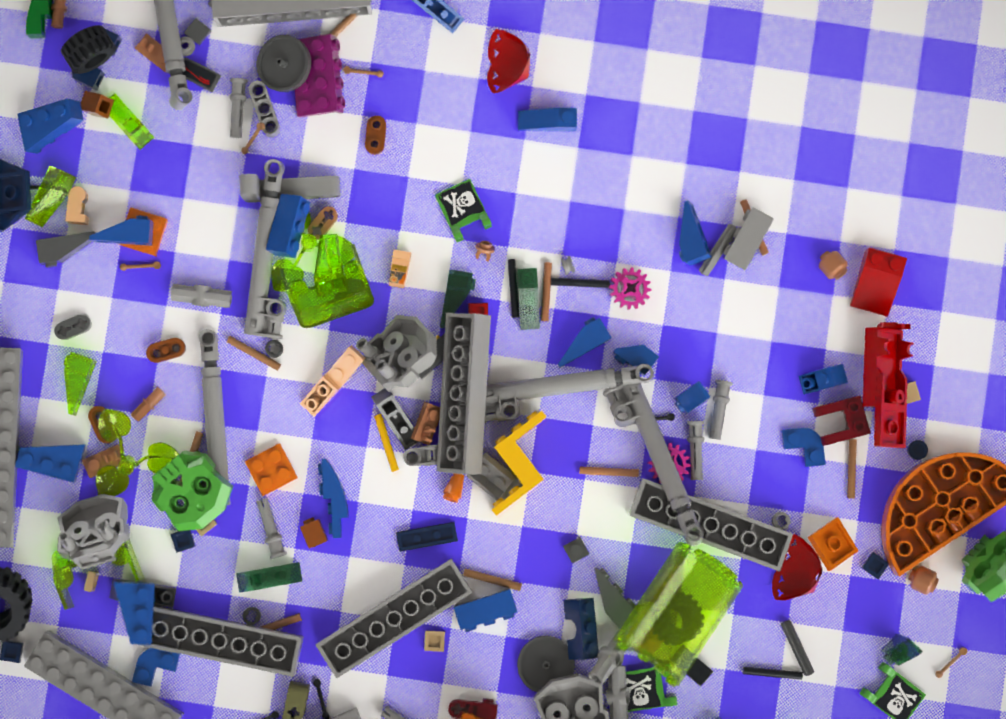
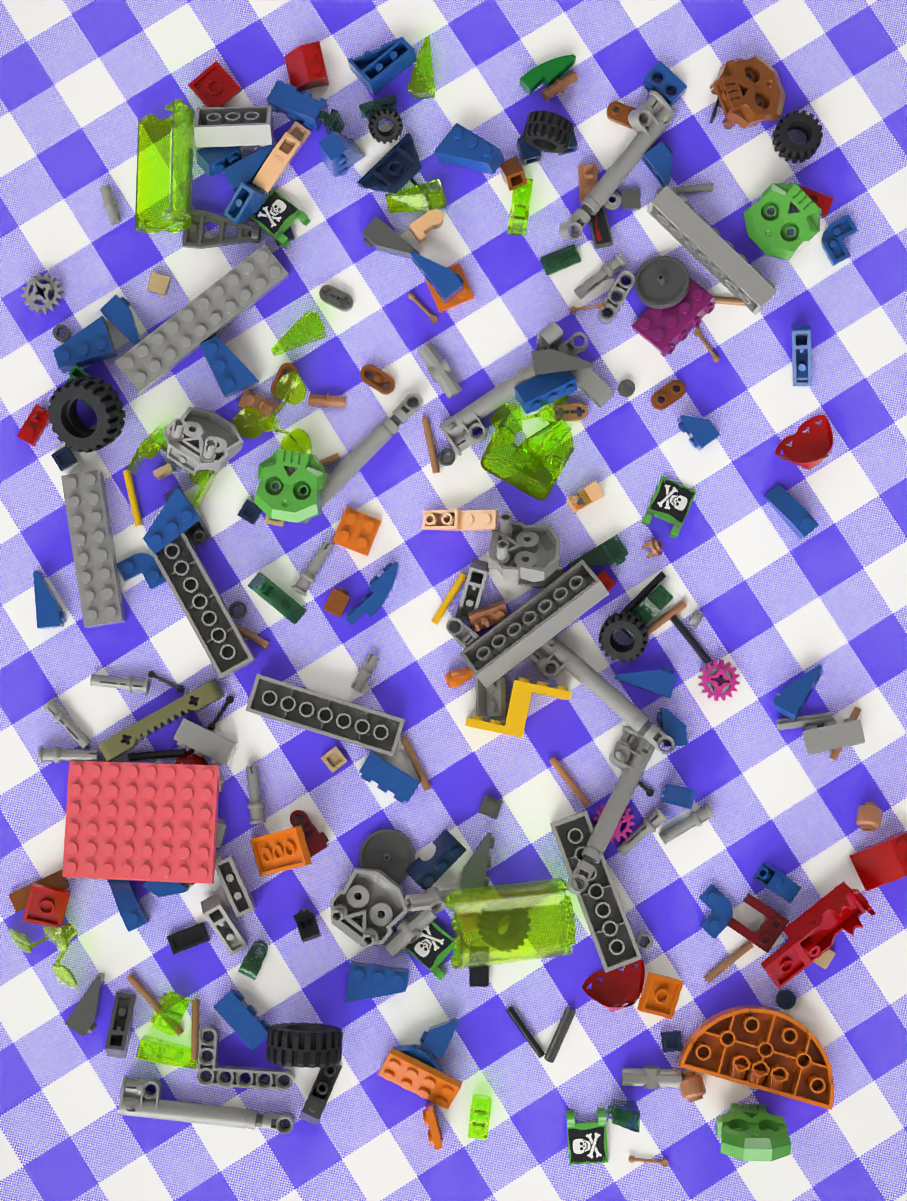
camera: 55 degrees right, 0 degrees up
(91, 624) = (132, 498): none -> yellow bar
(197, 126) = (560, 260): none -> clear green plate
(272, 201) = (553, 361): none -> dark grey slope
(340, 168) = (620, 389): none -> dark grey bush
(387, 558) = (364, 672): none -> light grey pin
(424, 135) = (699, 431): none -> blue slope
(426, 536) = (405, 687): dark blue tile -> none
(524, 320) = (619, 651): none -> black tyre
(889, 605) = (651, 1077): none -> light grey piece

